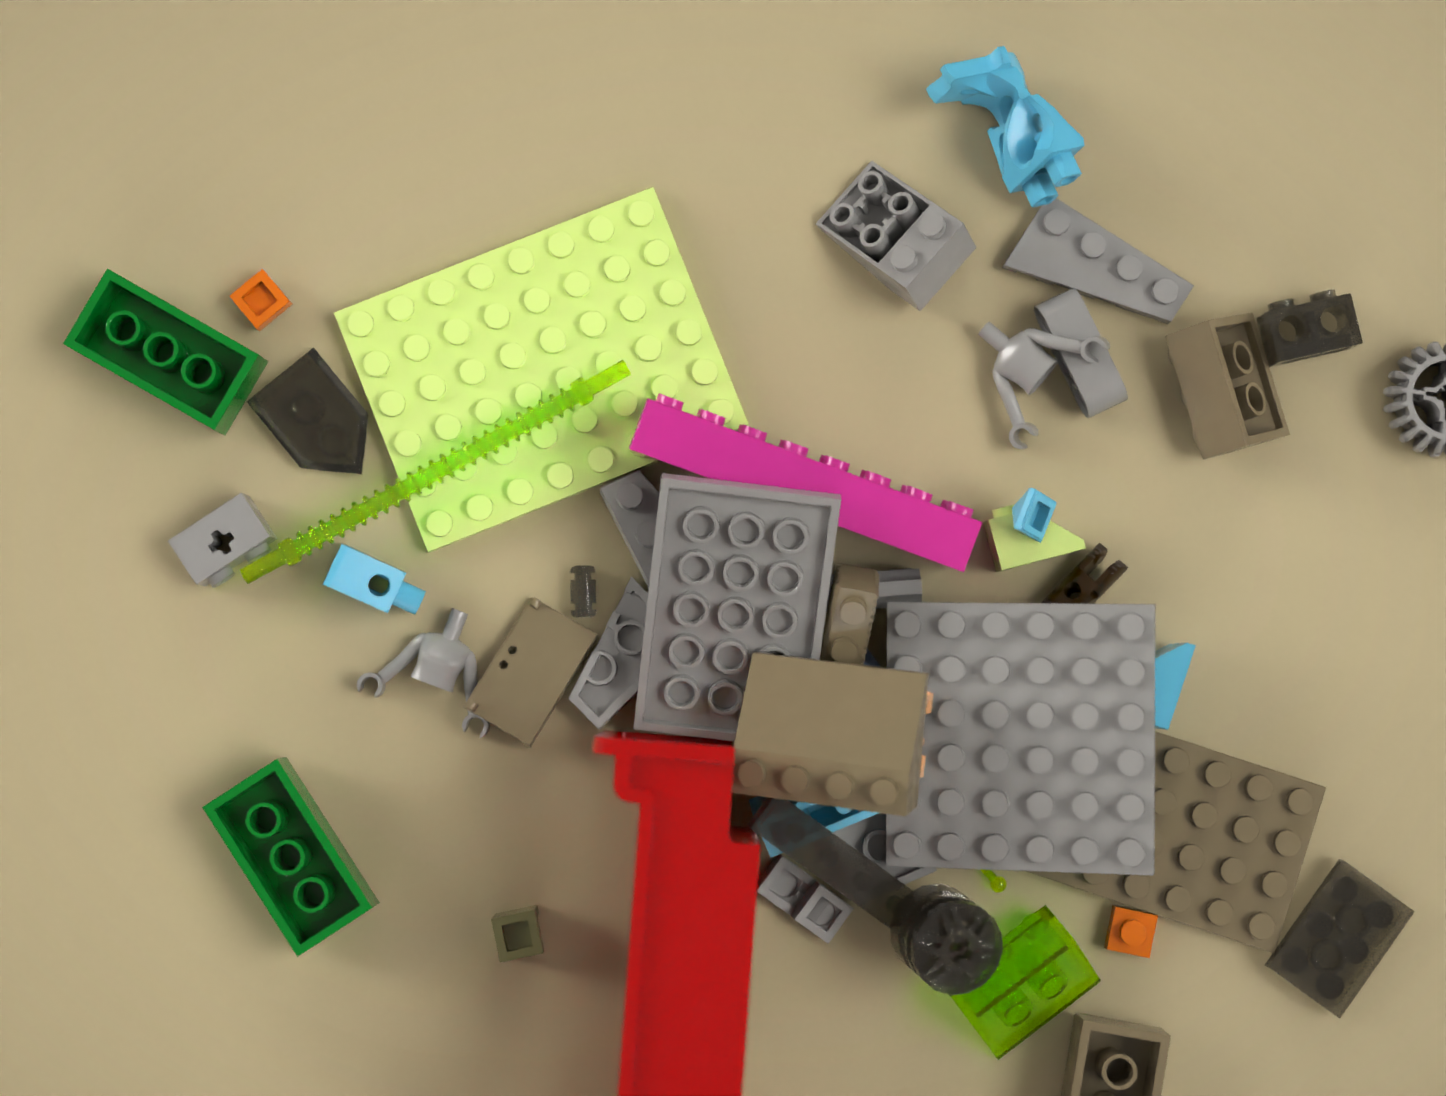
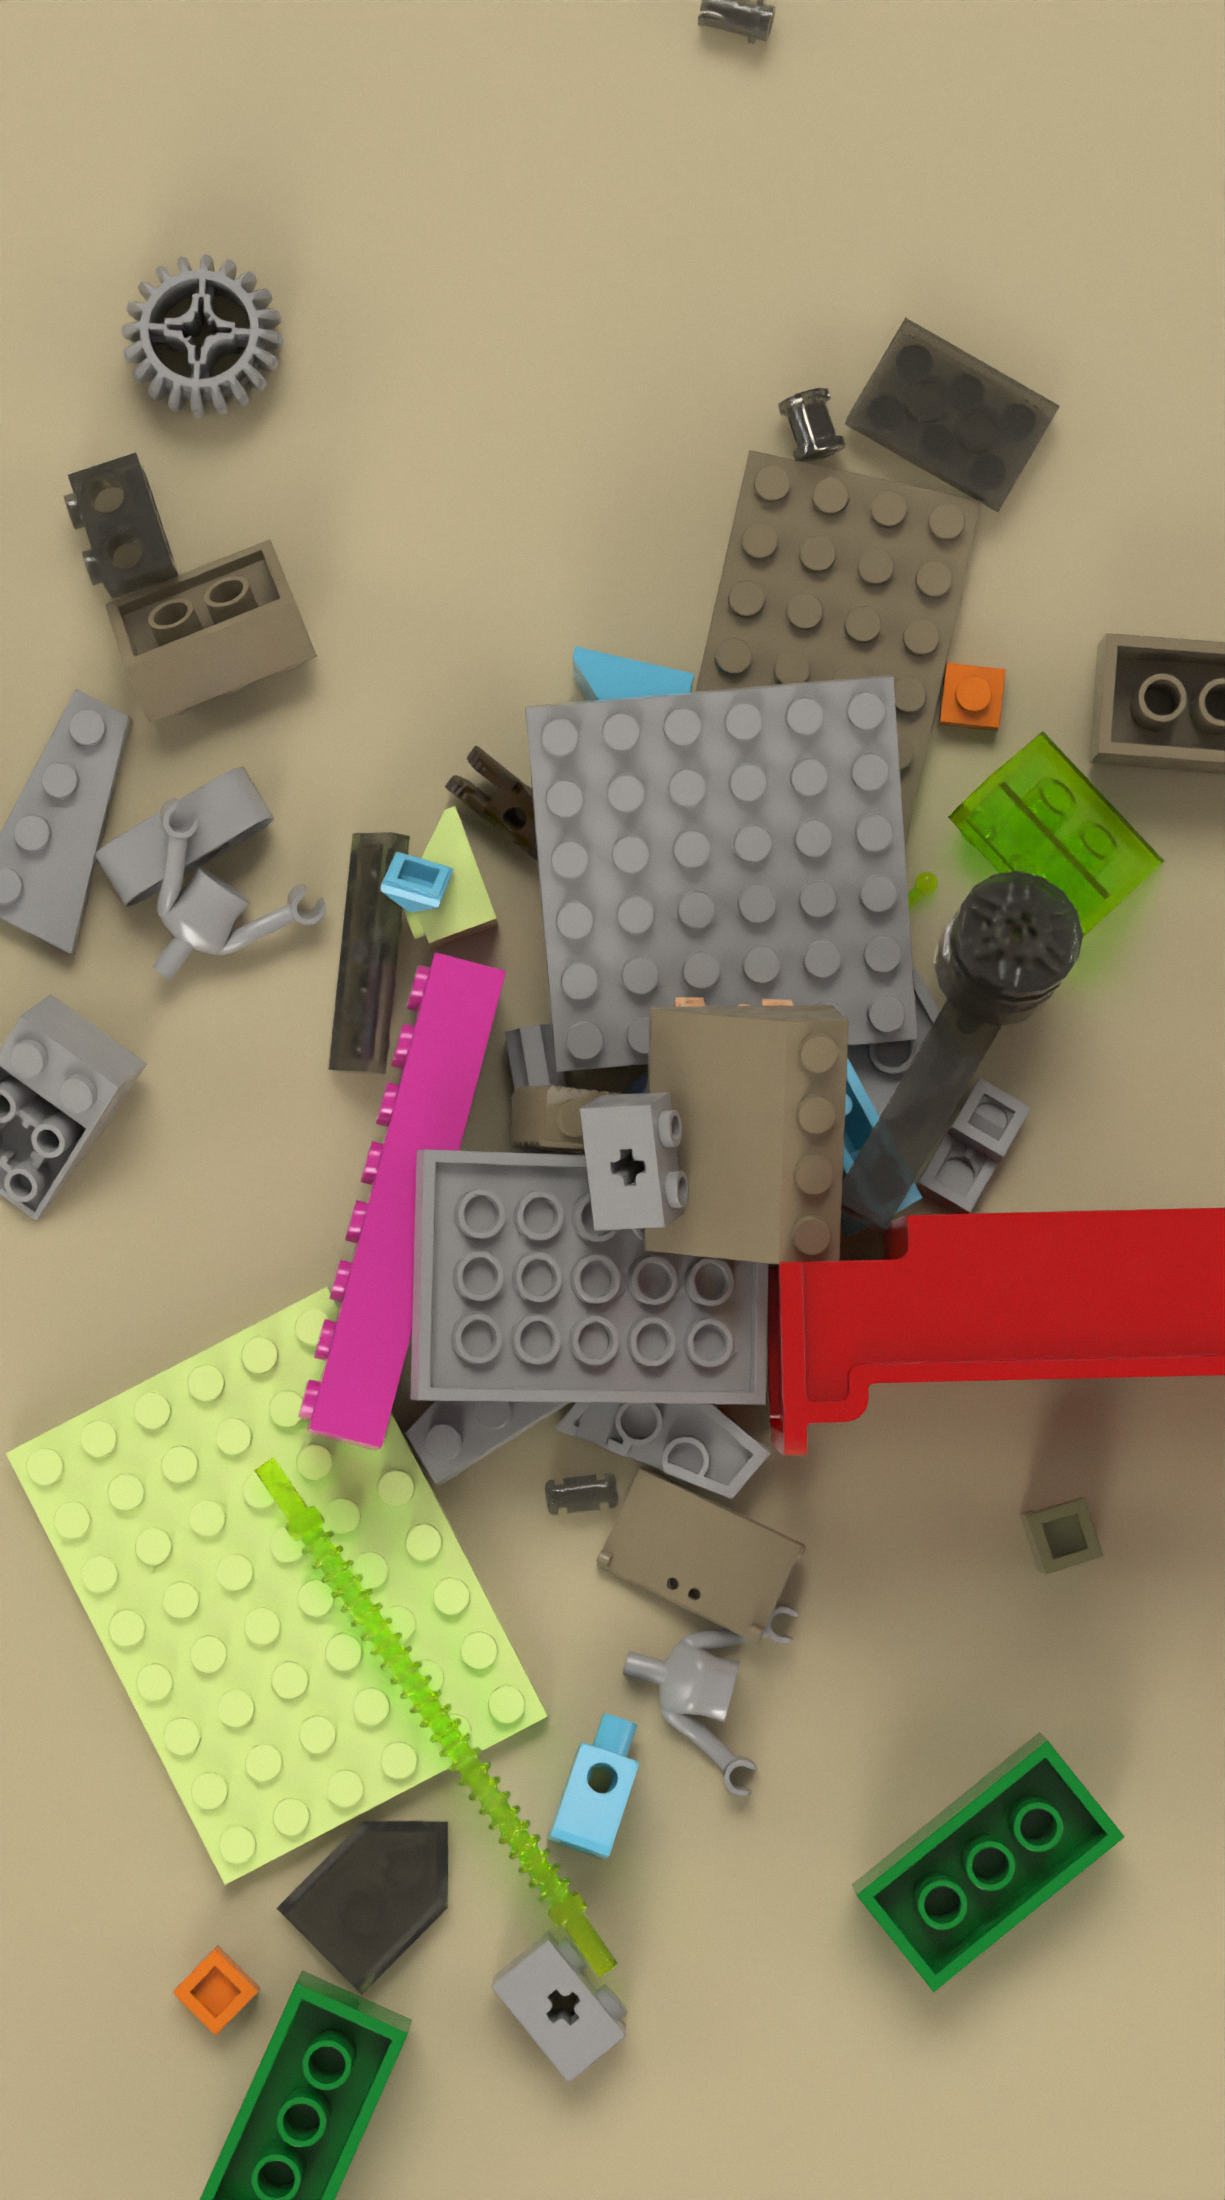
camera: 85 degrees left, 0 degrees up
(797, 641) = (620, 1188): none -> light grey brick
(980, 475) = (367, 958): none -> clear smoke plate
(1340, 834) = (811, 425): none -> clear smoke bush

